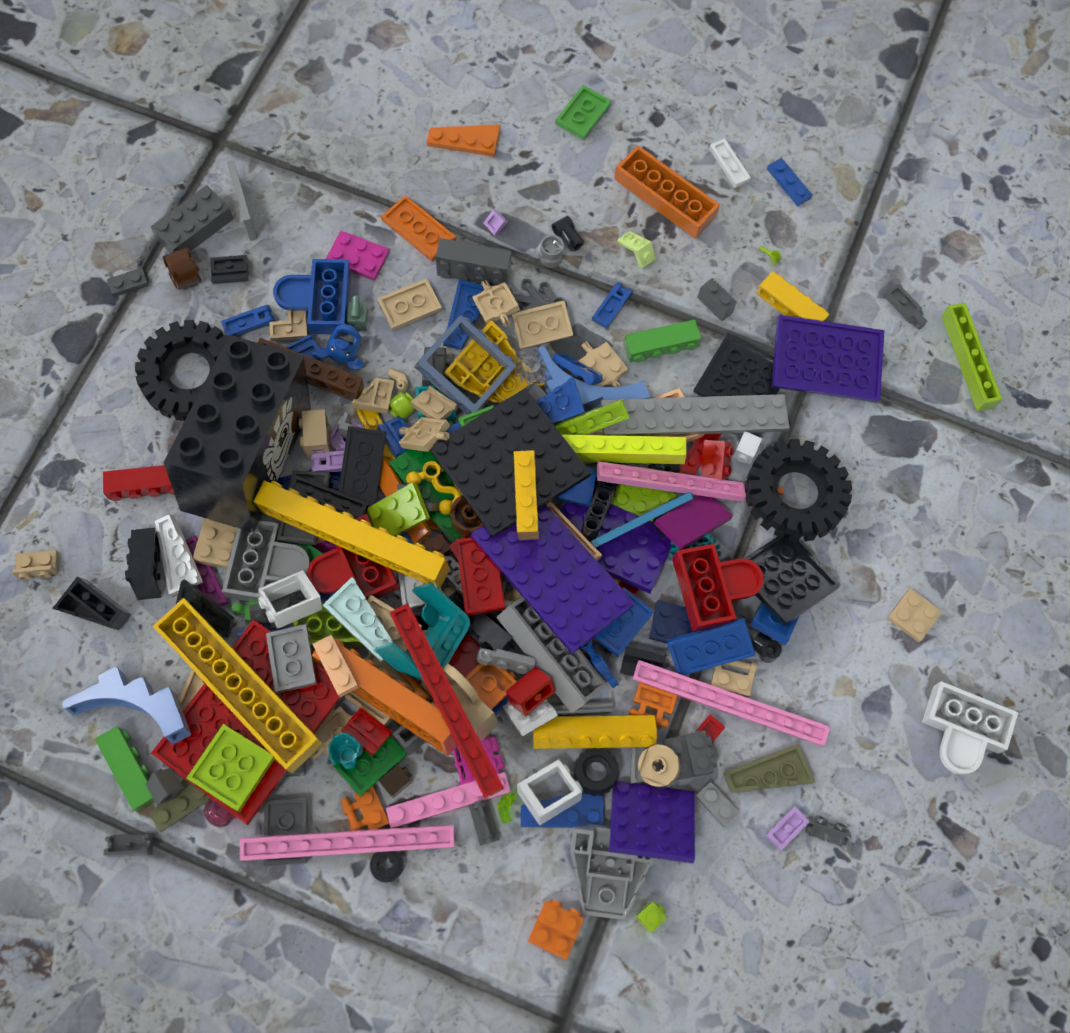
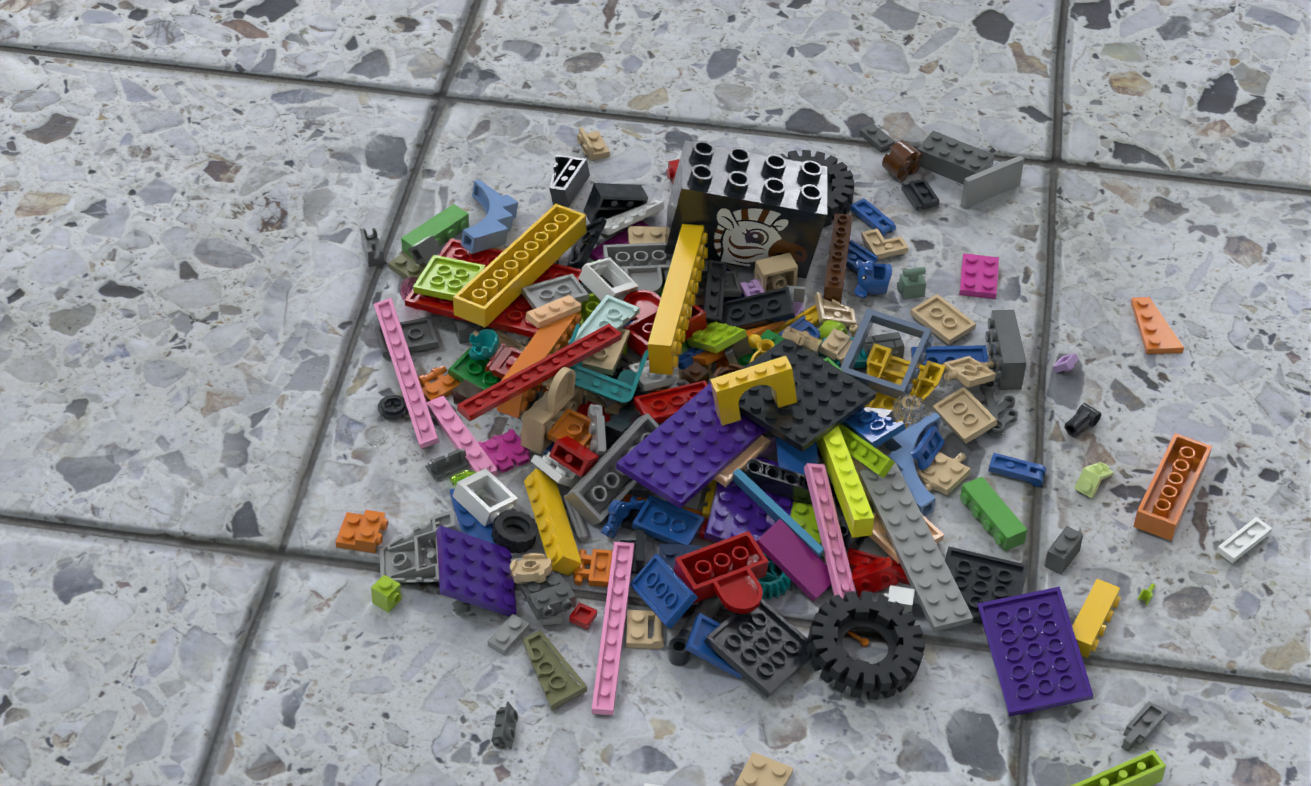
camera: 80 degrees right, 25 degrees down
(322, 294) = (919, 248): blue brick -> none
(416, 227) = (1034, 310): orange tile -> none
(551, 251) = (1052, 407): light grey wheel -> none
(583, 112) = (1237, 408): bright green plate -> none
(787, 828) = (497, 690): lavender plate -> none
(789, 181) = (1252, 599): blue plate -> none

